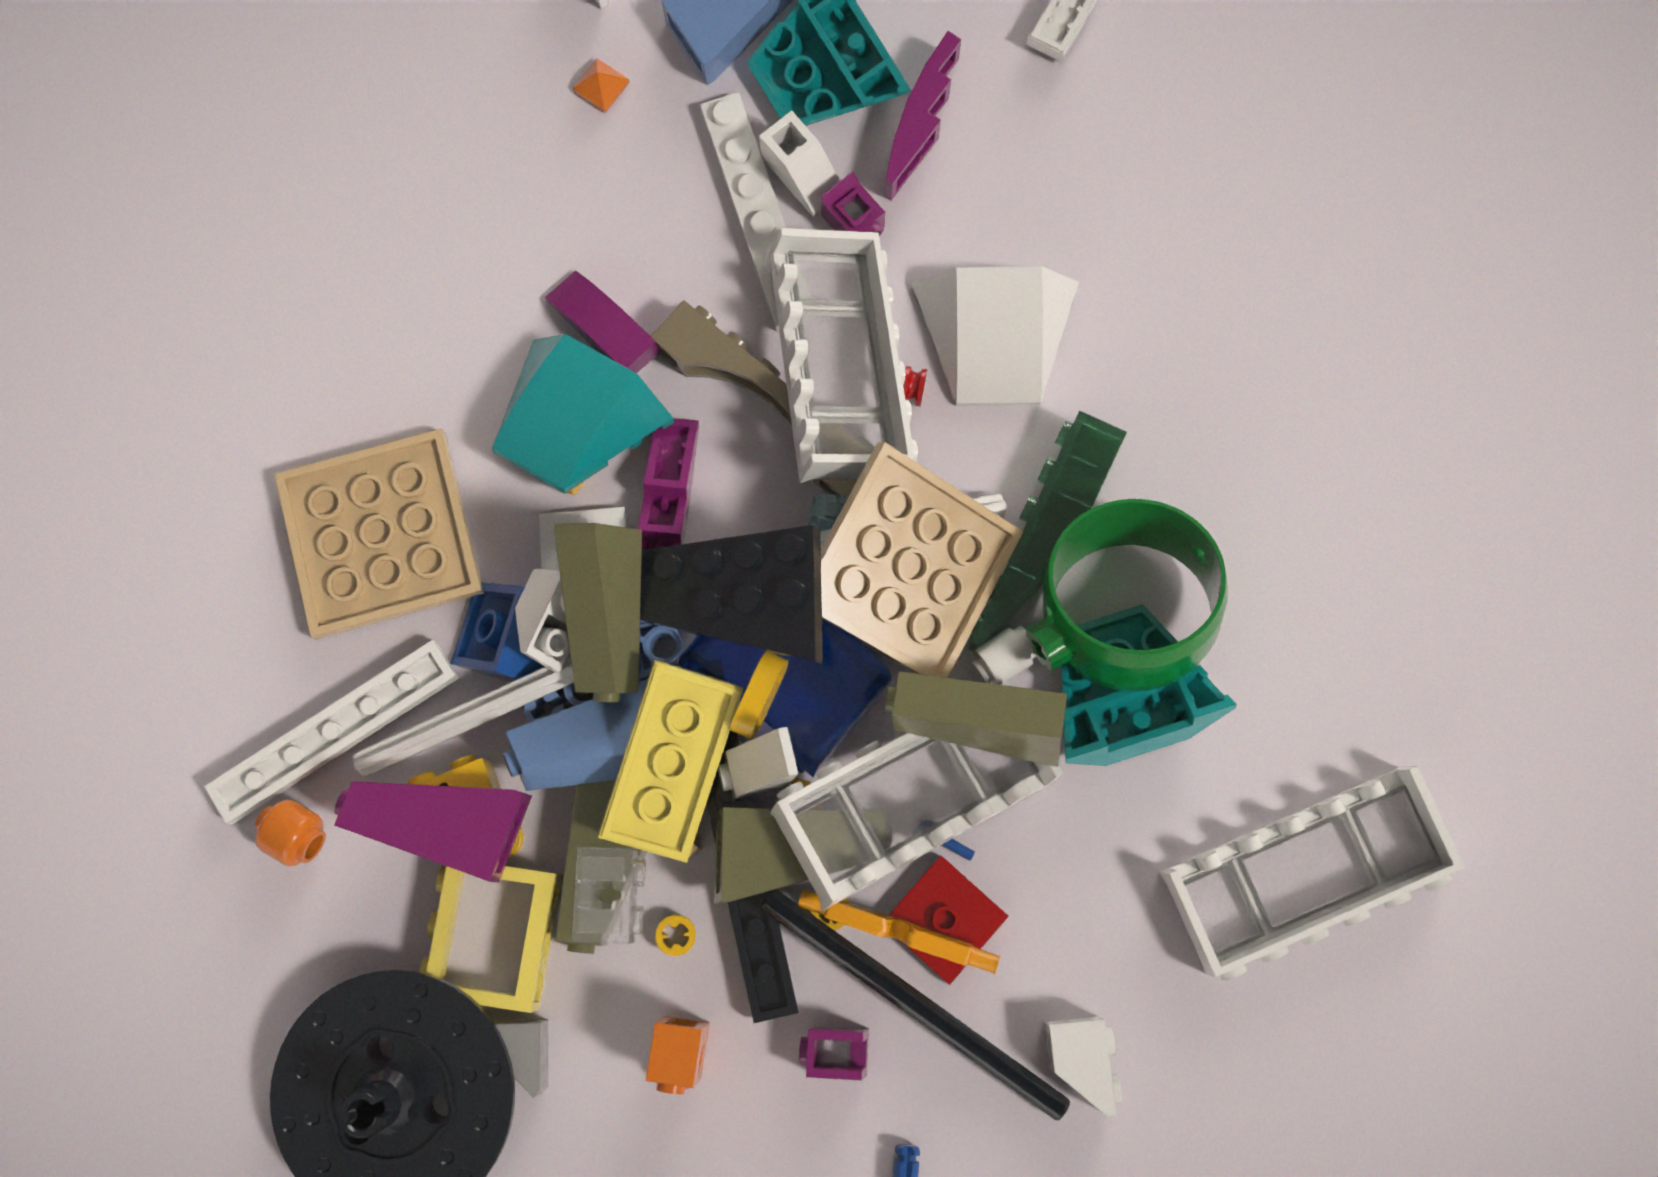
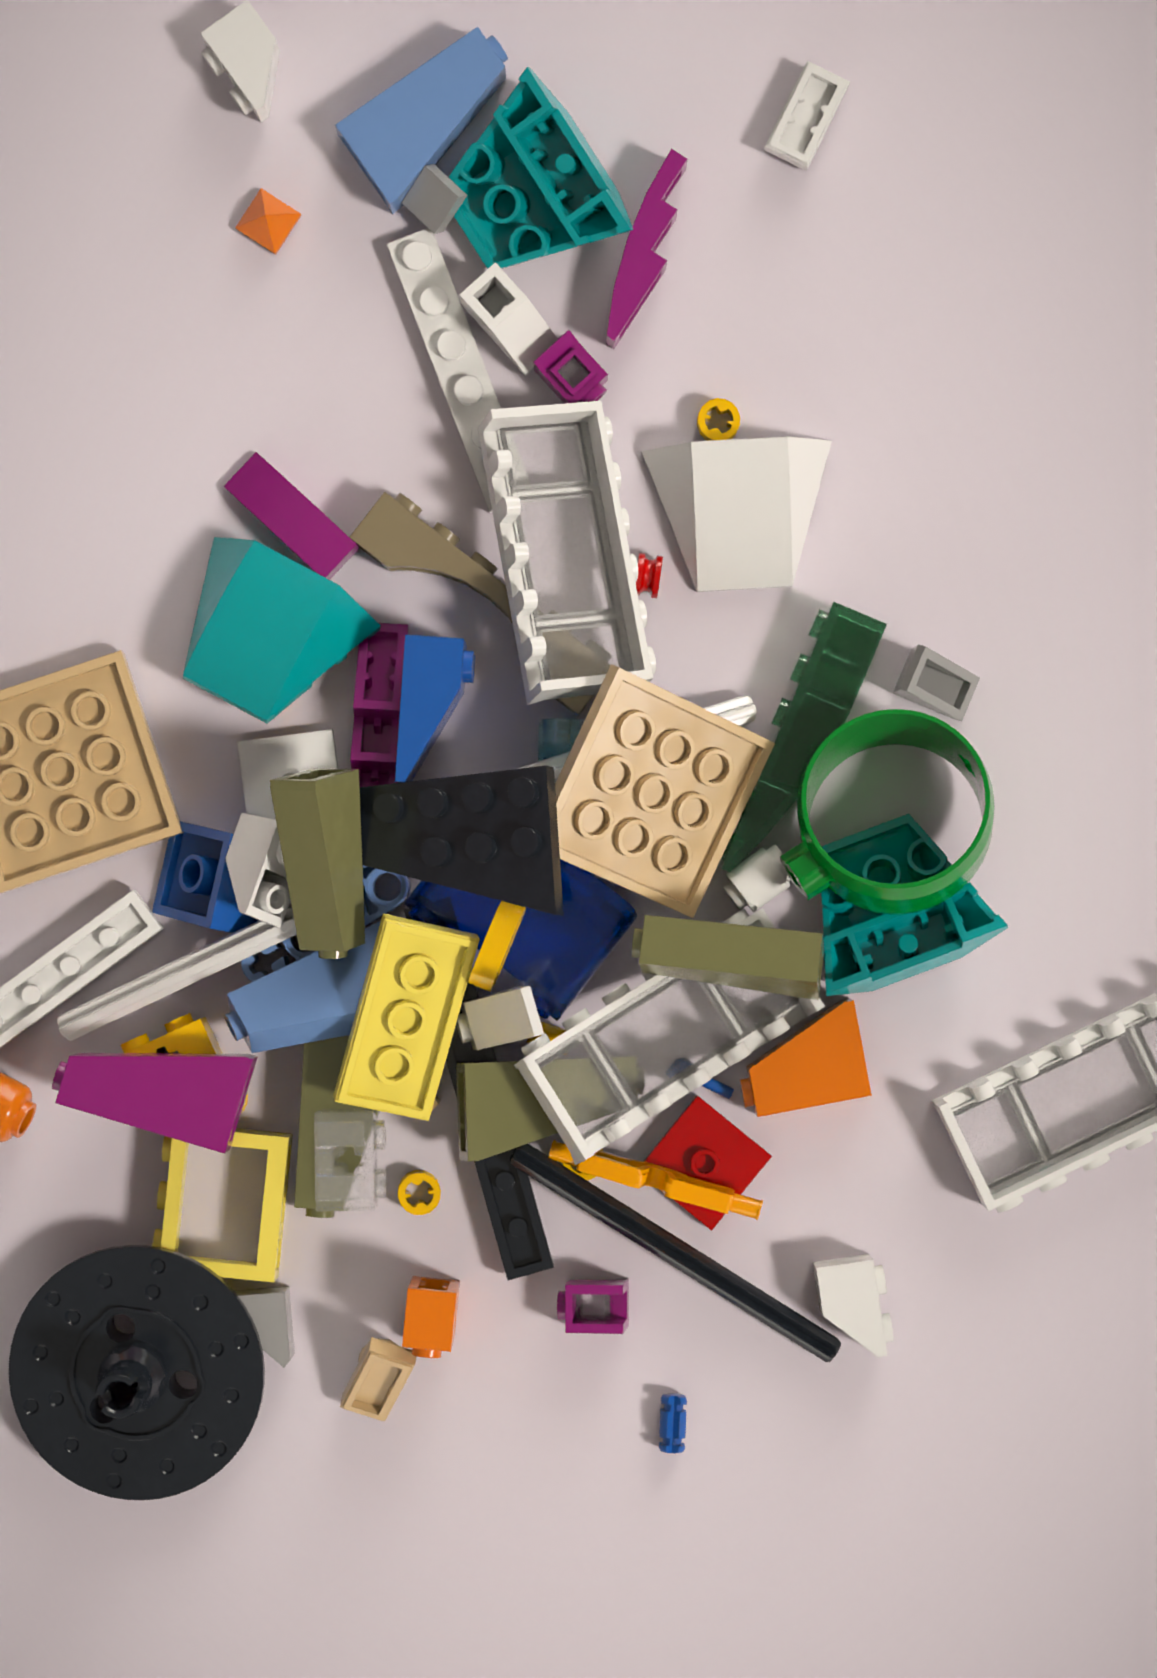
camera: 10 degrees left, 10 degrees up
(623, 1114) = (378, 1378): none -> tan tile
(713, 473) = (430, 692): none -> blue slope
(742, 67) = (434, 198): none -> light grey tile
(983, 249) = (722, 406): none -> yellow bush
(1049, 832) = (811, 1066): none -> orange slope
(1170, 483) = (936, 683): none -> light grey slope

